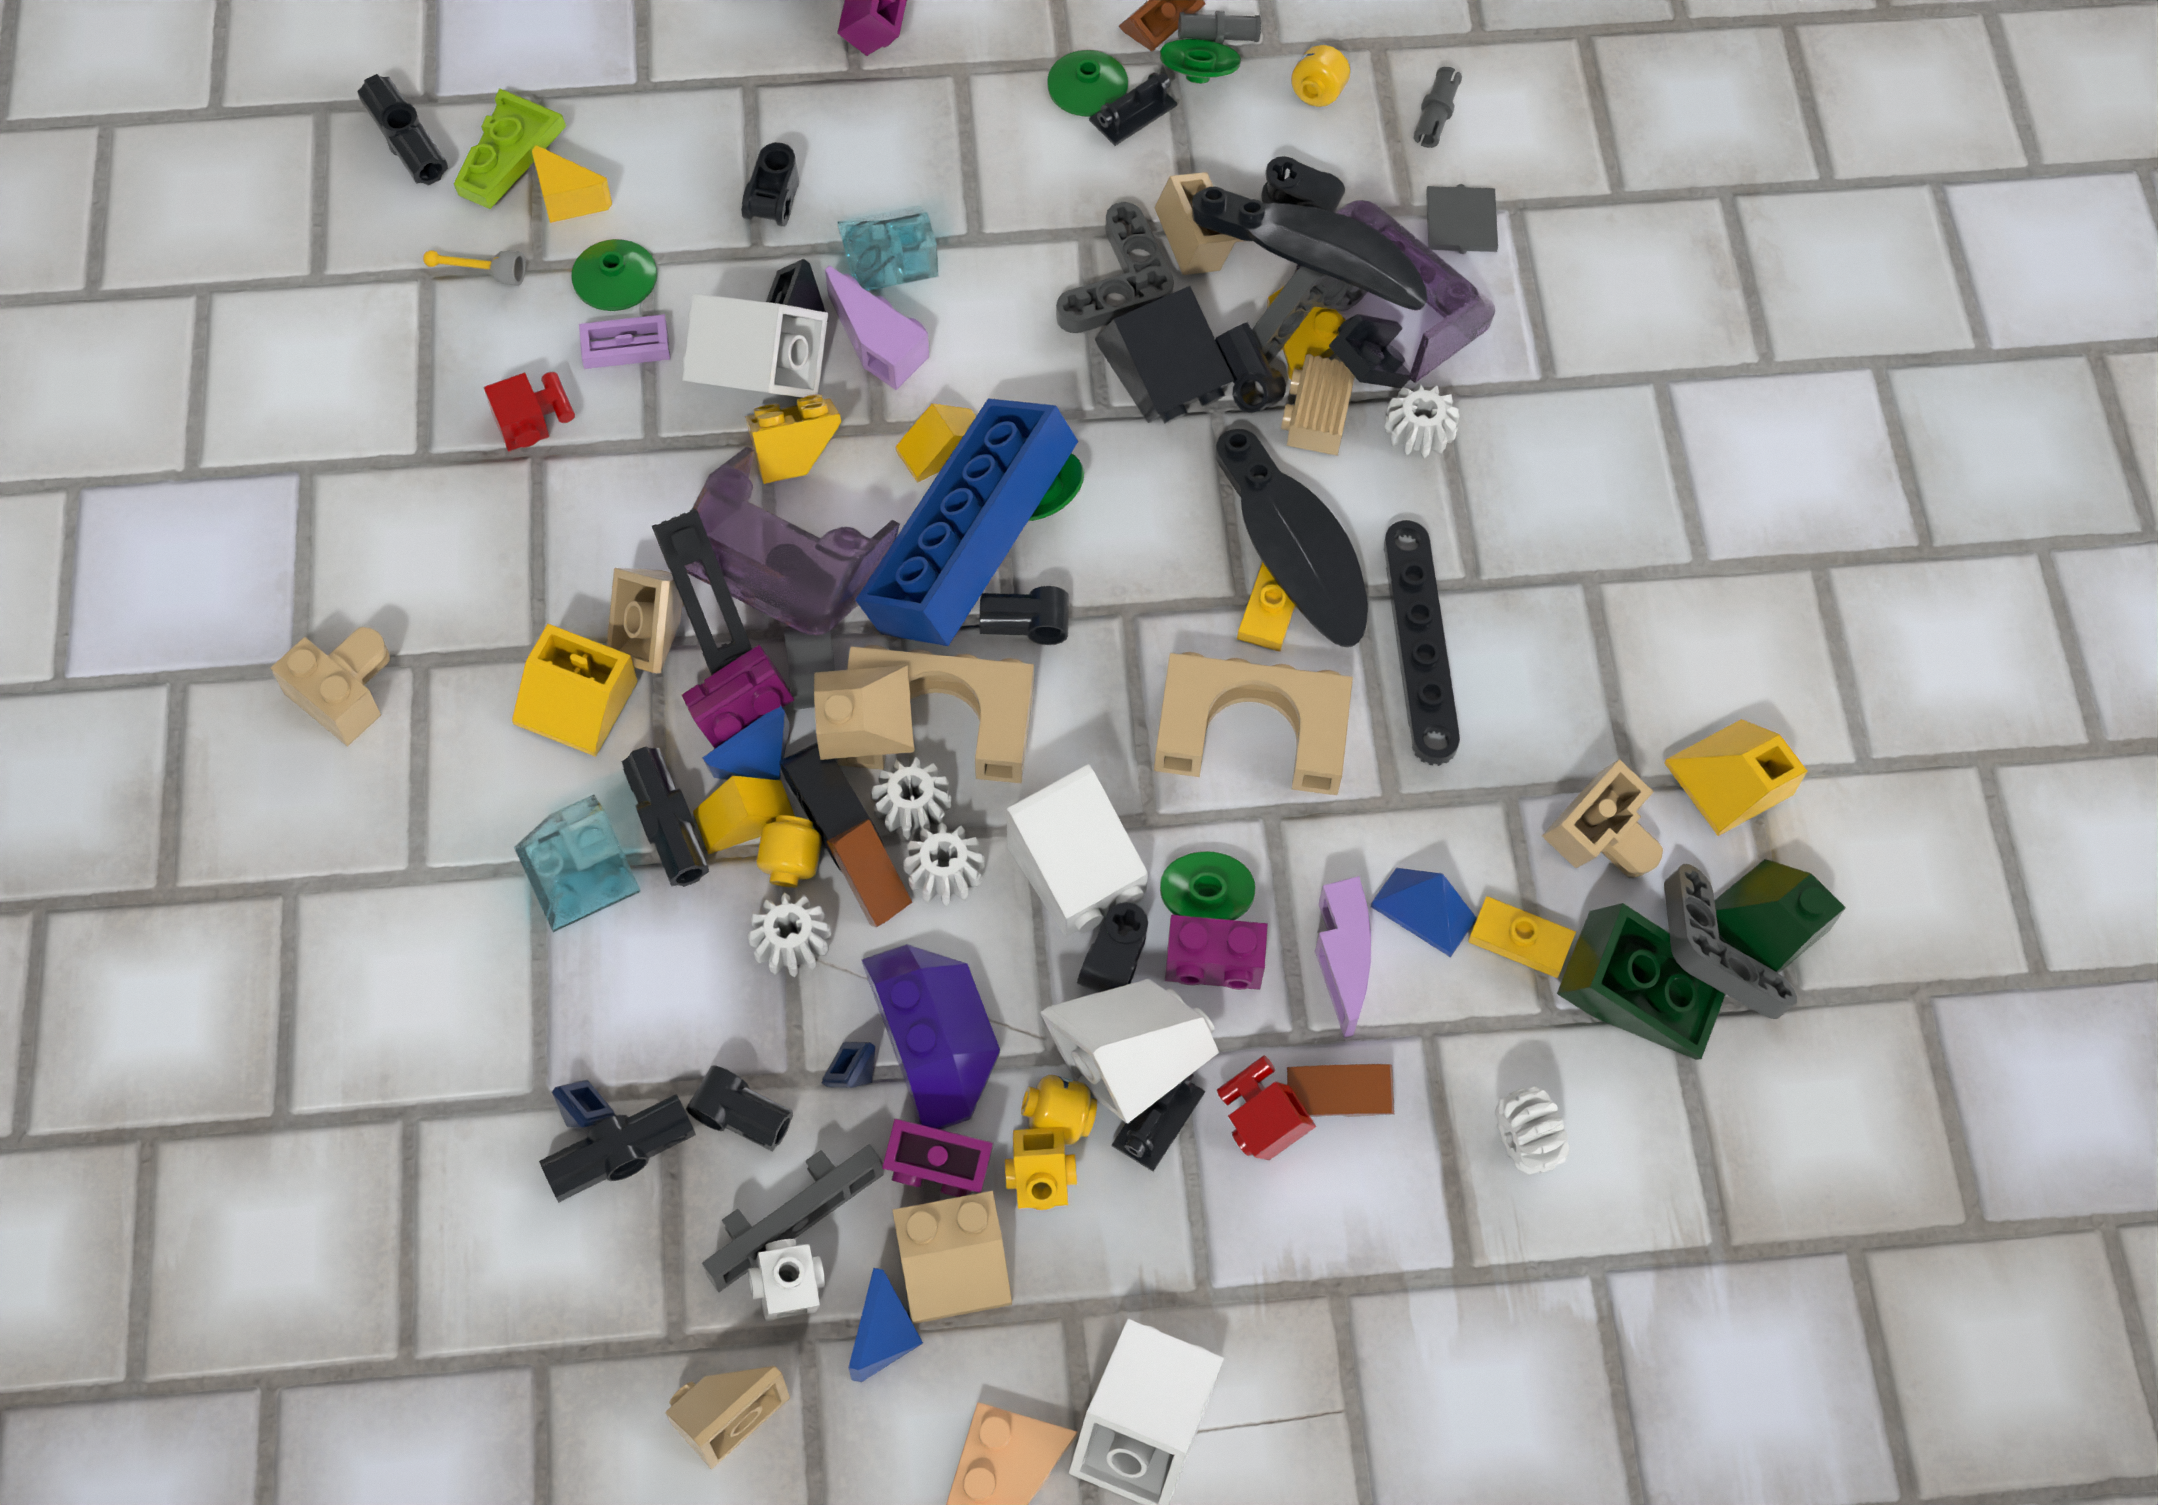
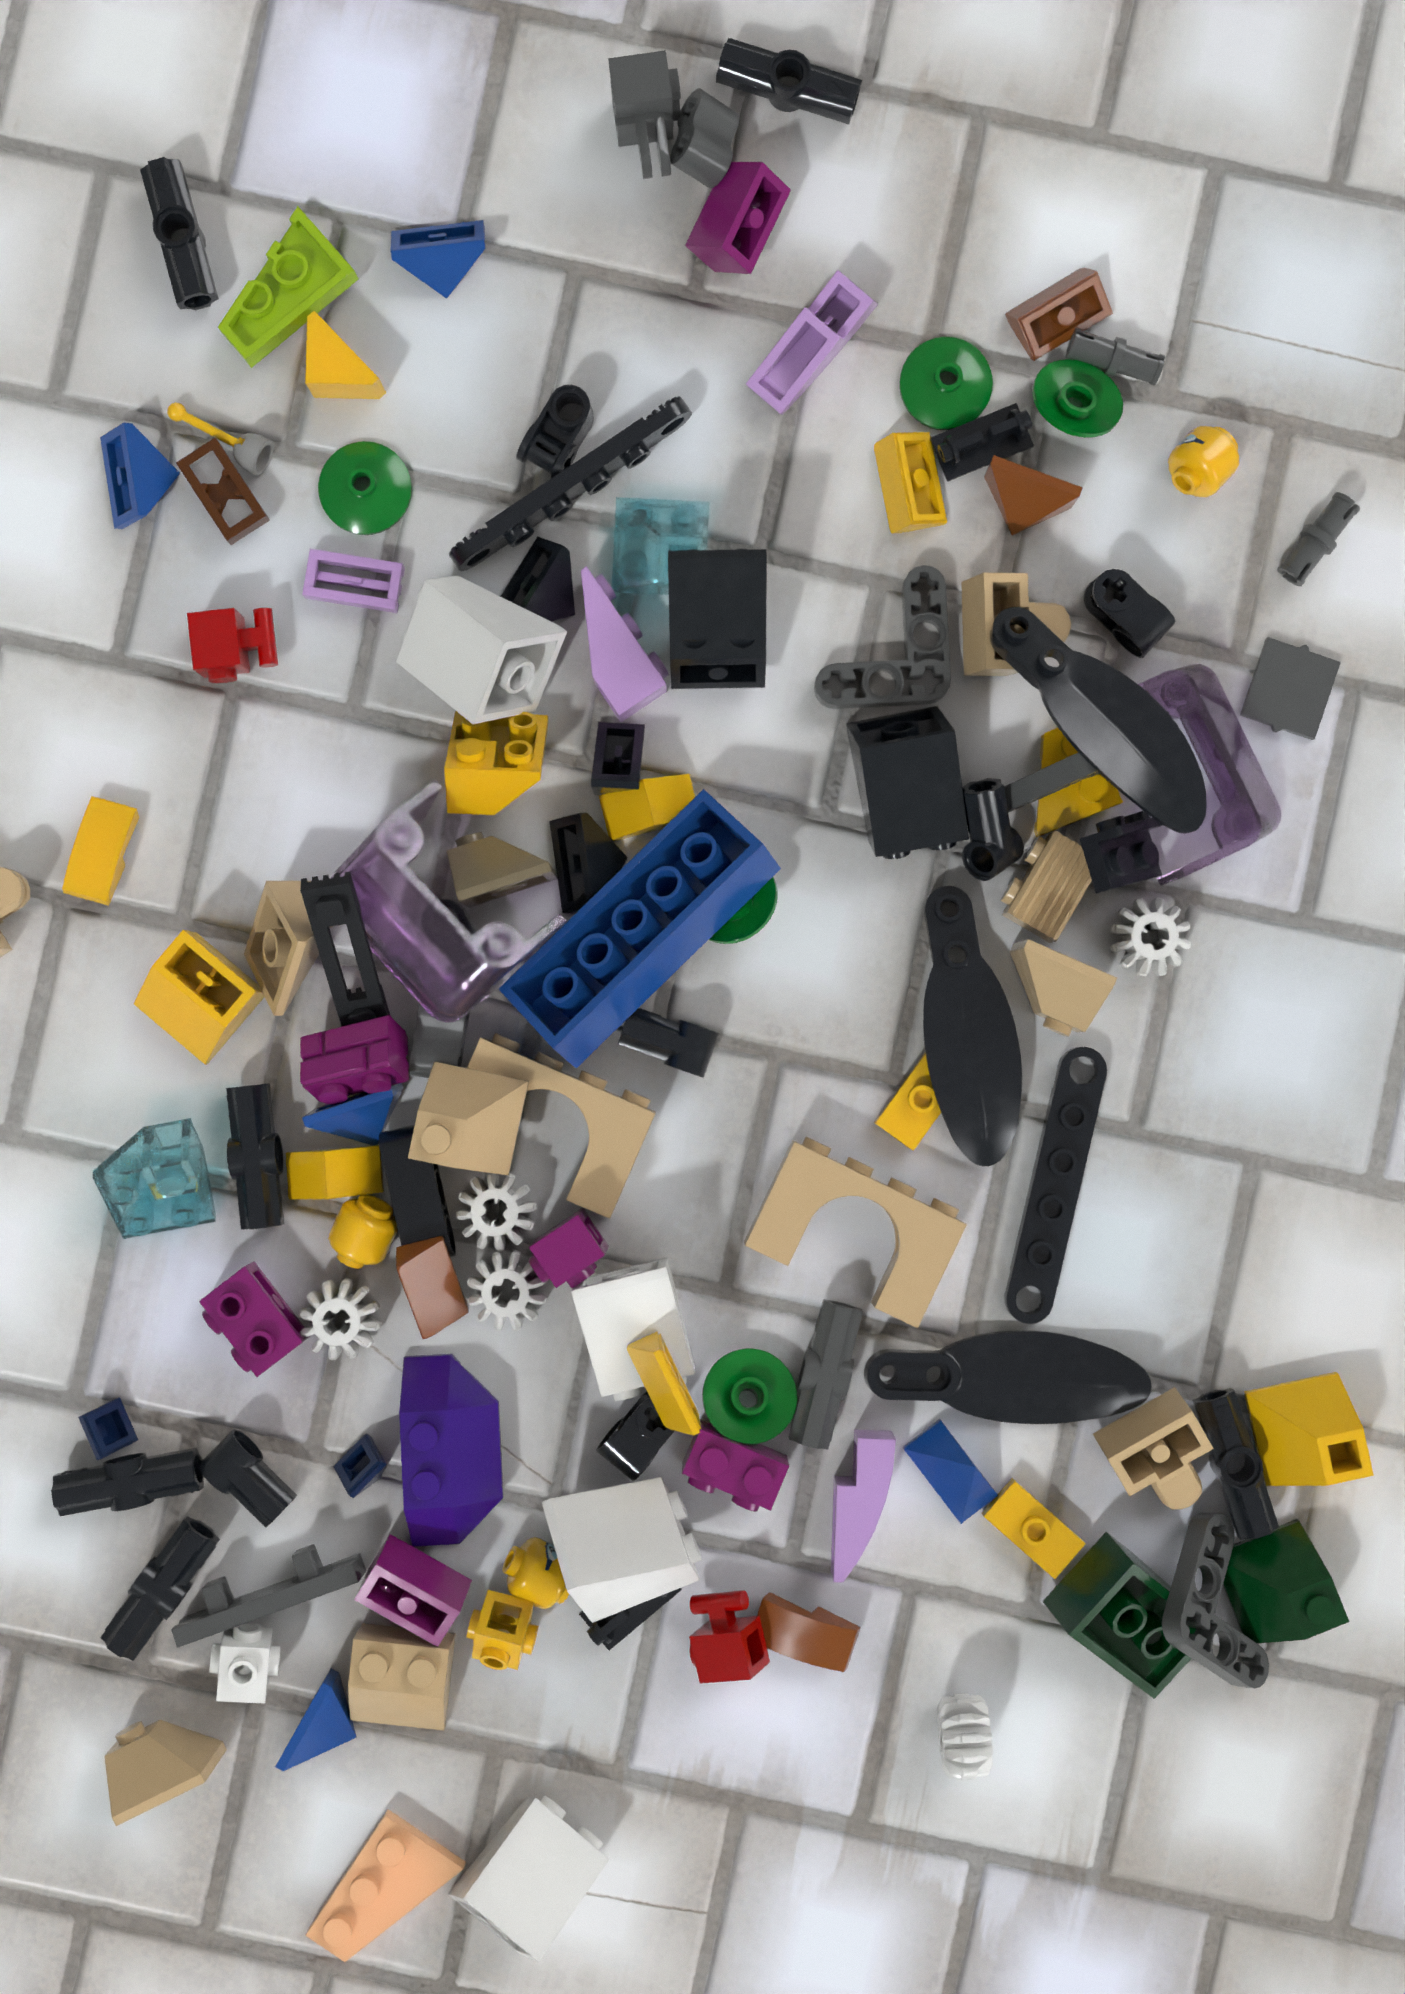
camera: 15 degrees right, 25 degrees up
(403, 309) = (134, 474): none -> blue slope
(447, 604) = (99, 850): none -> yellow slope
(489, 301) = (222, 491): none -> reddish brown piece
(632, 95) = (439, 253): none -> blue slope
(677, 1242) = (160, 1588): none -> black piece
(704, 959) = (253, 1319): none -> magenta brick
(796, 218) = (587, 474): none -> black plate
(832, 505) = (493, 869): none -> dark tan slope
(892, 488) = (583, 859): none -> black slope
(902, 410) = (617, 757): none -> black slope
(956, 264) = (717, 618): none -> black slope
(966, 74) = (811, 342): none -> lavender slope
(985, 794) = (568, 1251): none -> magenta brick
(1083, 154) = (909, 482): none -> yellow slope
(1123, 874) = (664, 1384): none -> yellow slope
(1186, 133) = (1028, 495): none -> dark orange slope
(1272, 852) = (825, 1374): none -> dark grey piece
(1356, 465) = (1060, 987): none -> tan slope
(1450, 810) = (1016, 1377): none -> black plant
(1700, 841) = (1245, 1490): none -> black piece

